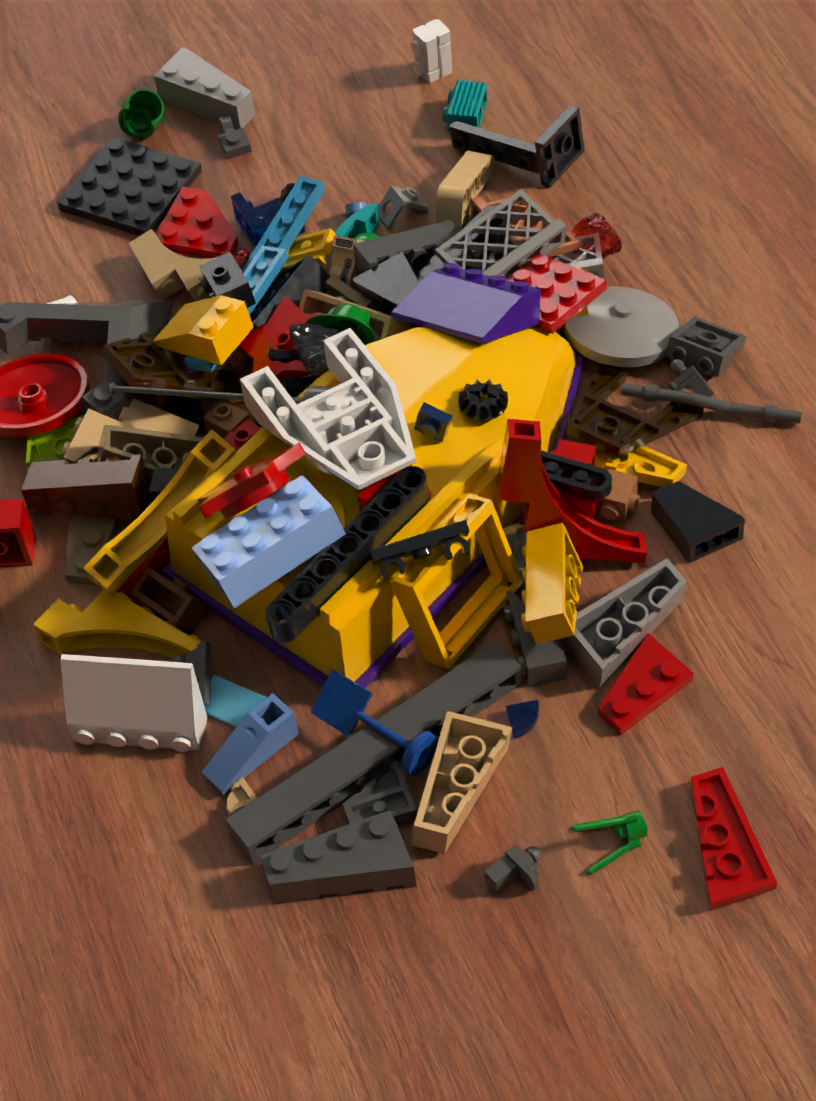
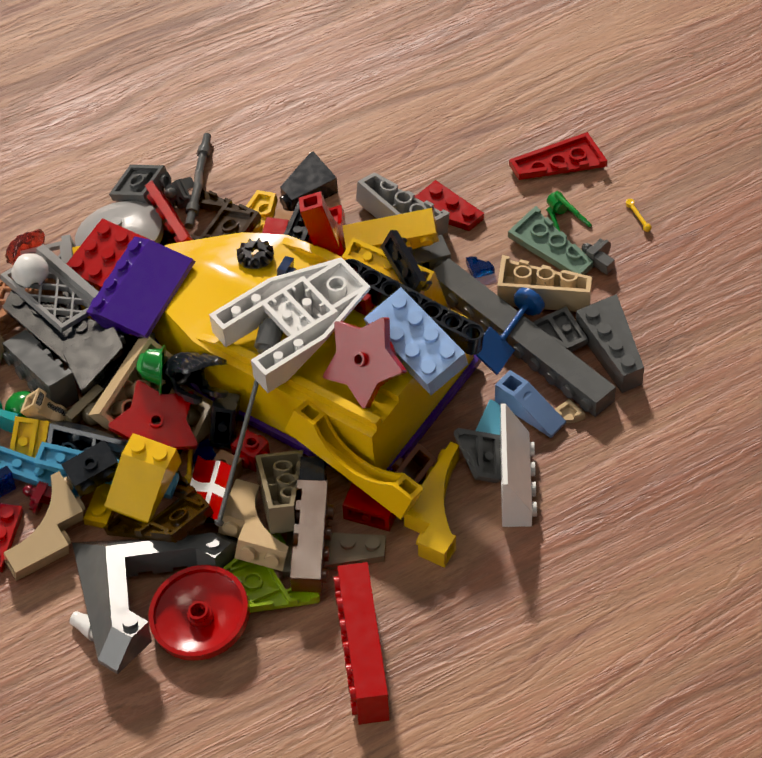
camera: 100 degrees left, 0 degrees up
(522, 213) = (29, 269): none -> white hair
(551, 806) = (545, 241): none -> sand green wing
(625, 362) = (167, 212): none -> wing
(629, 935) = (630, 204): none -> yellow hinge

